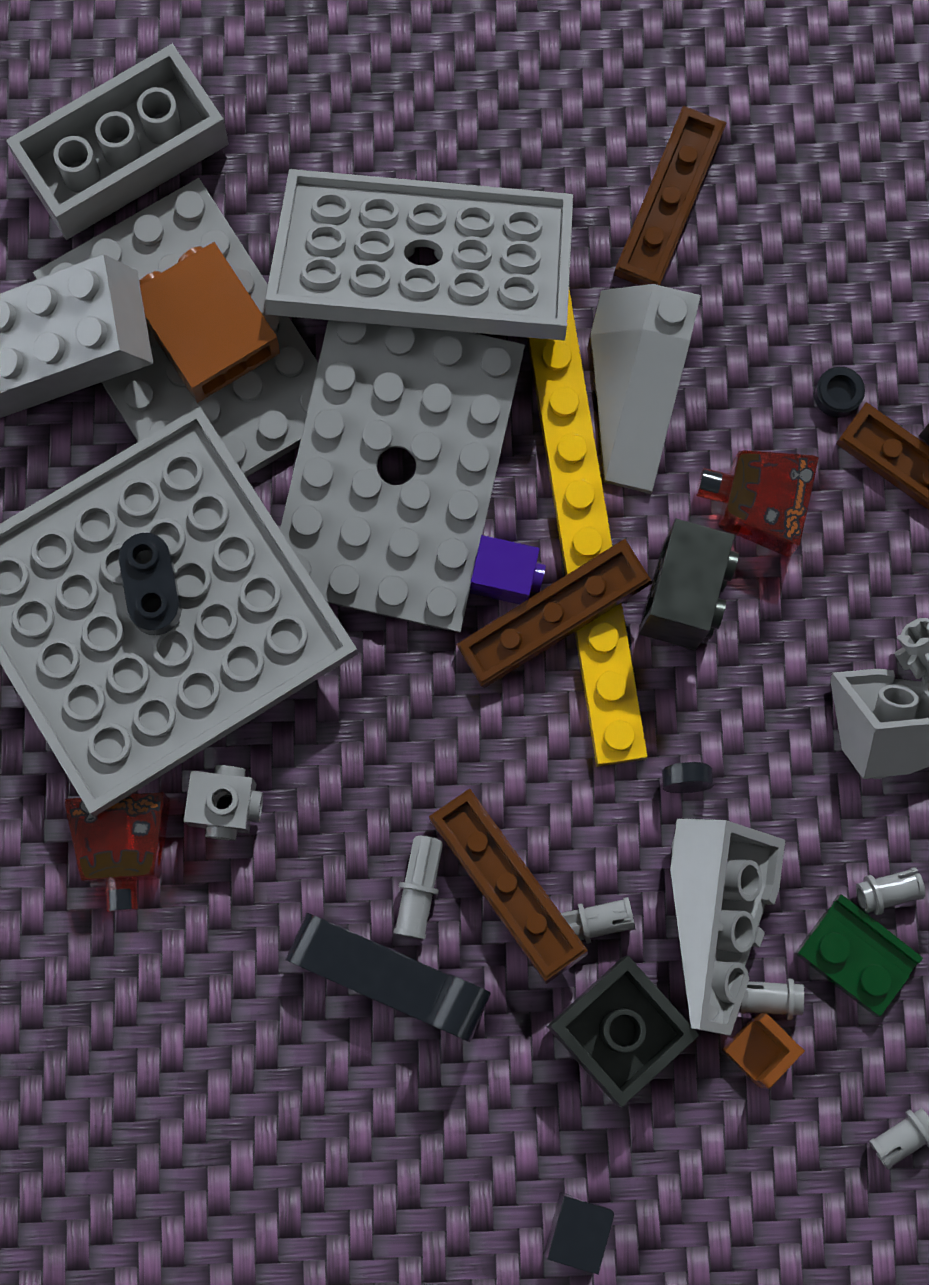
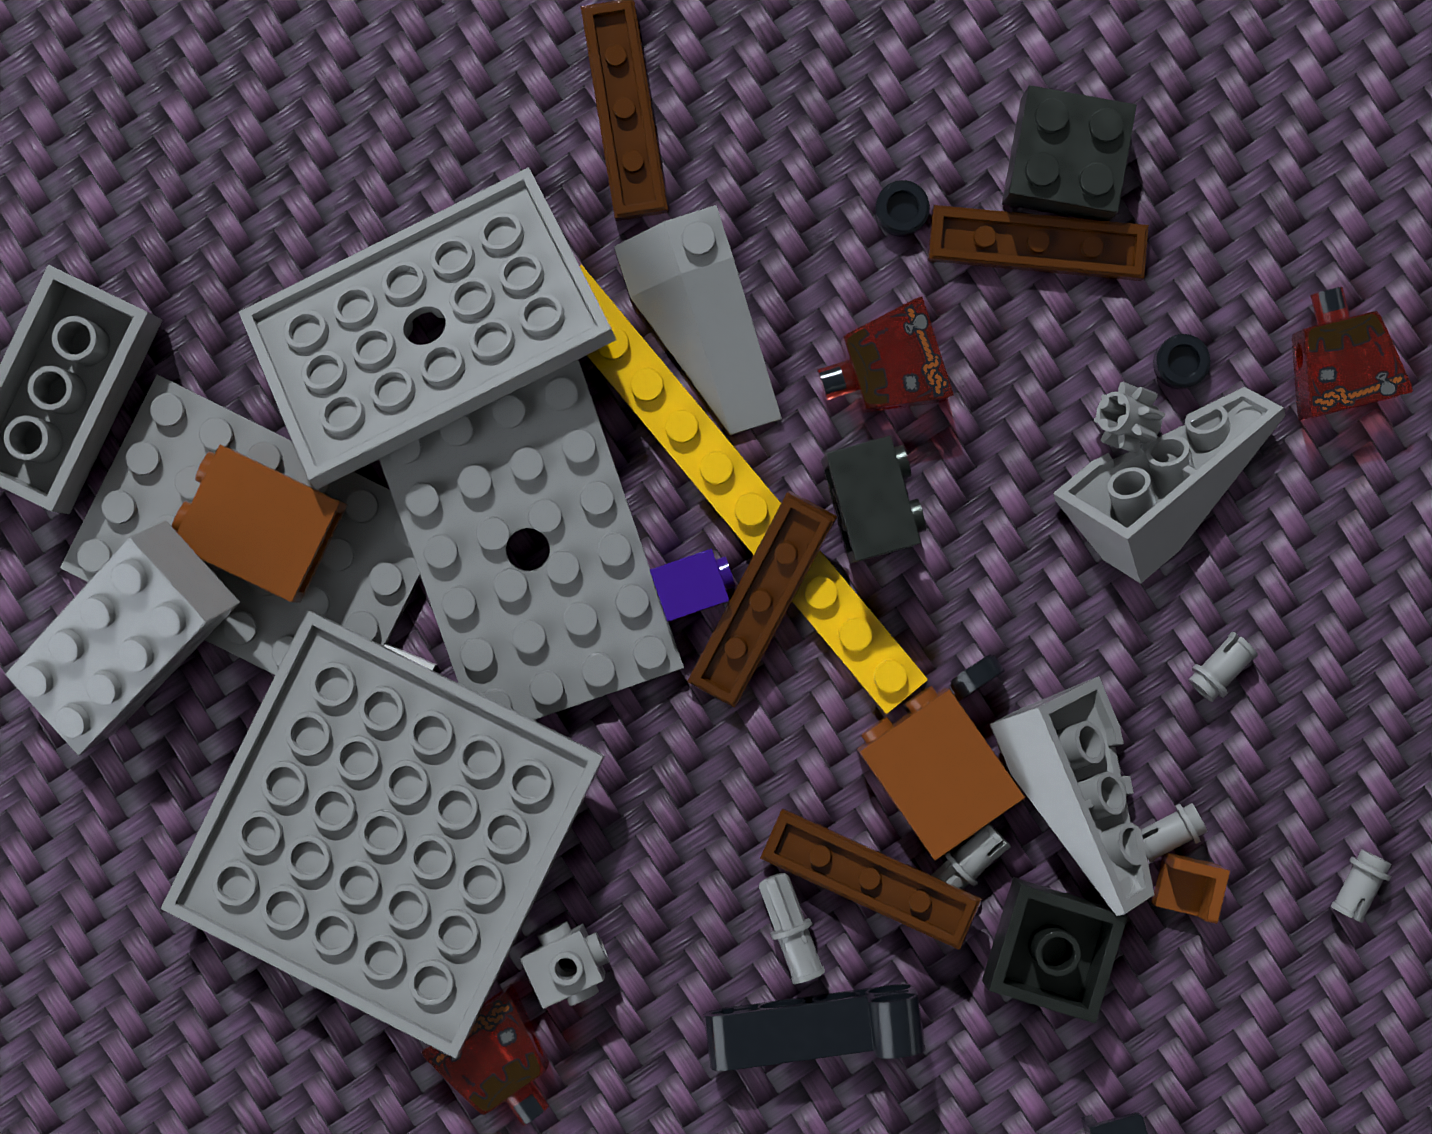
camera: 25 degrees left, 10 degrees up
(150, 581) = (372, 812): black plate -> none
(613, 832) = (939, 770): none -> dark orange brick
(858, 955) = (1227, 743): dark green plate -> none

